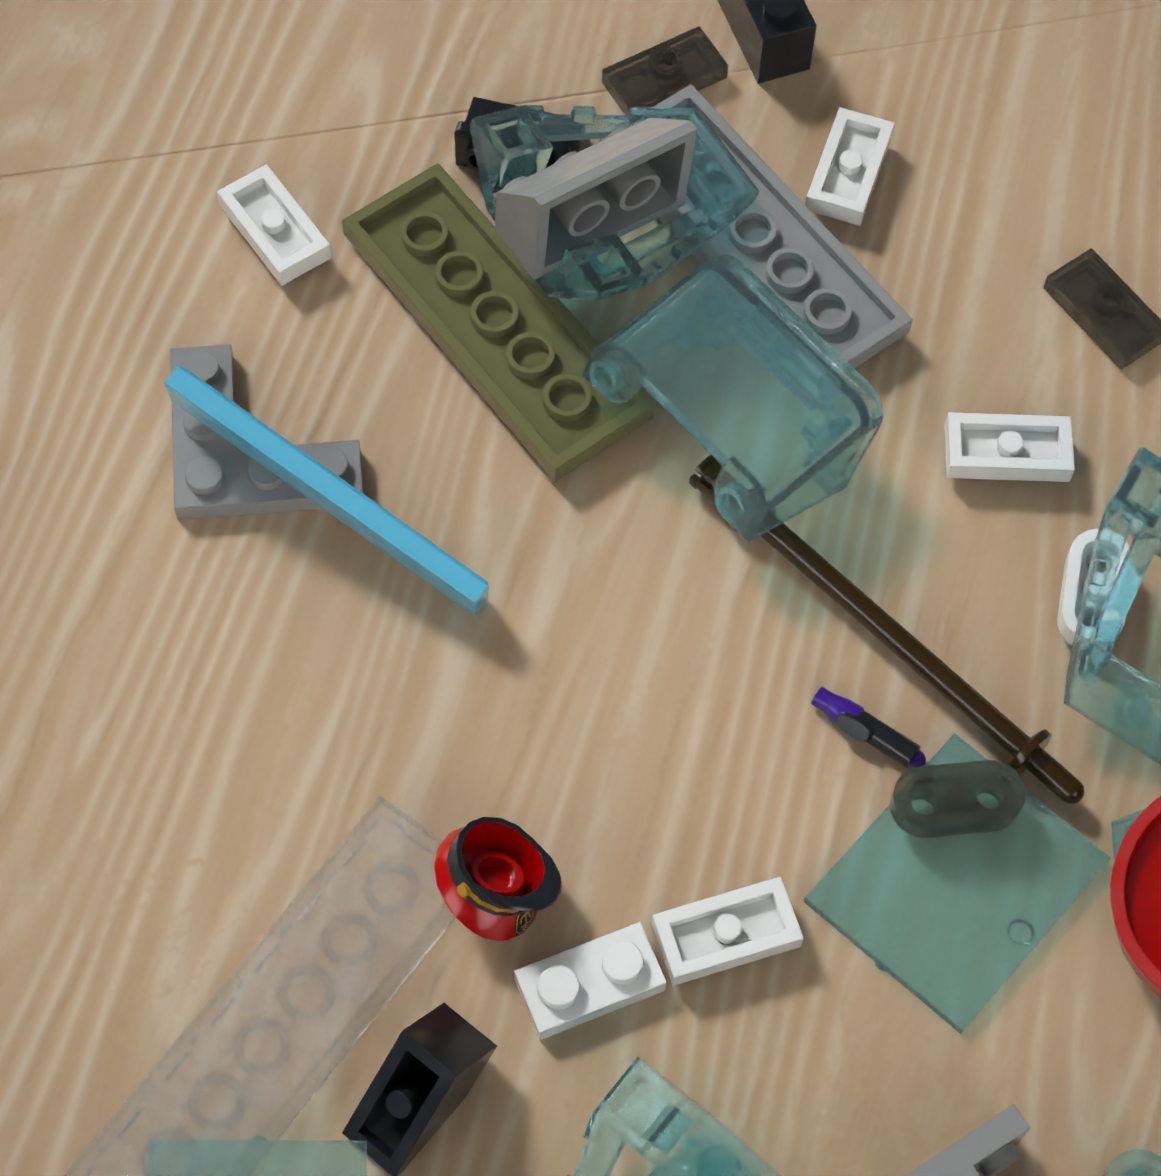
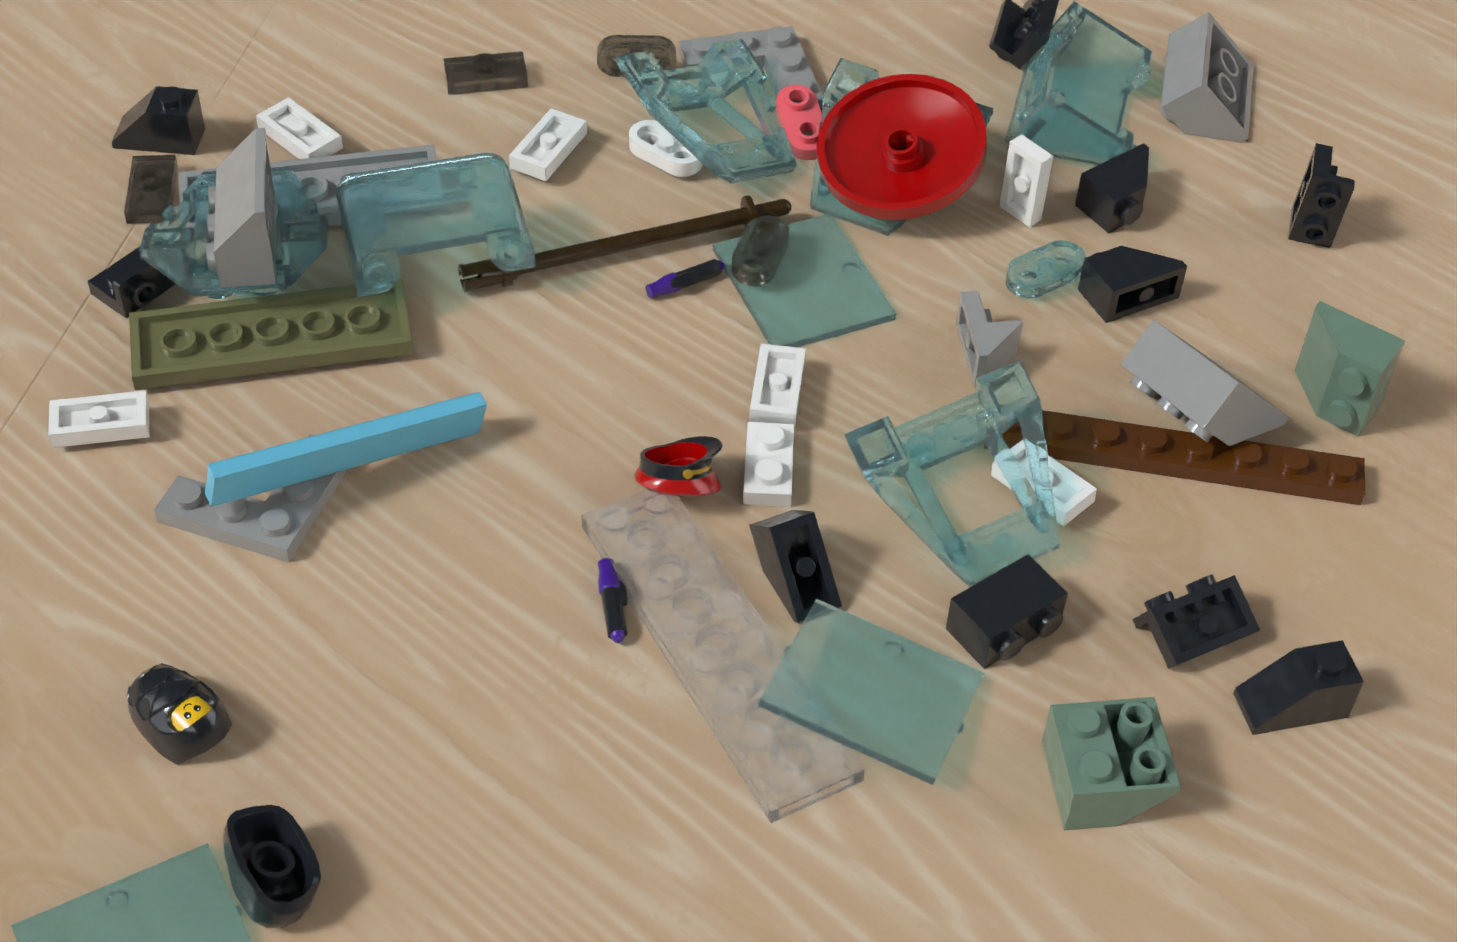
camera: 65 degrees left, 15 degrees down
(271, 895) = (613, 599): none -> black piece

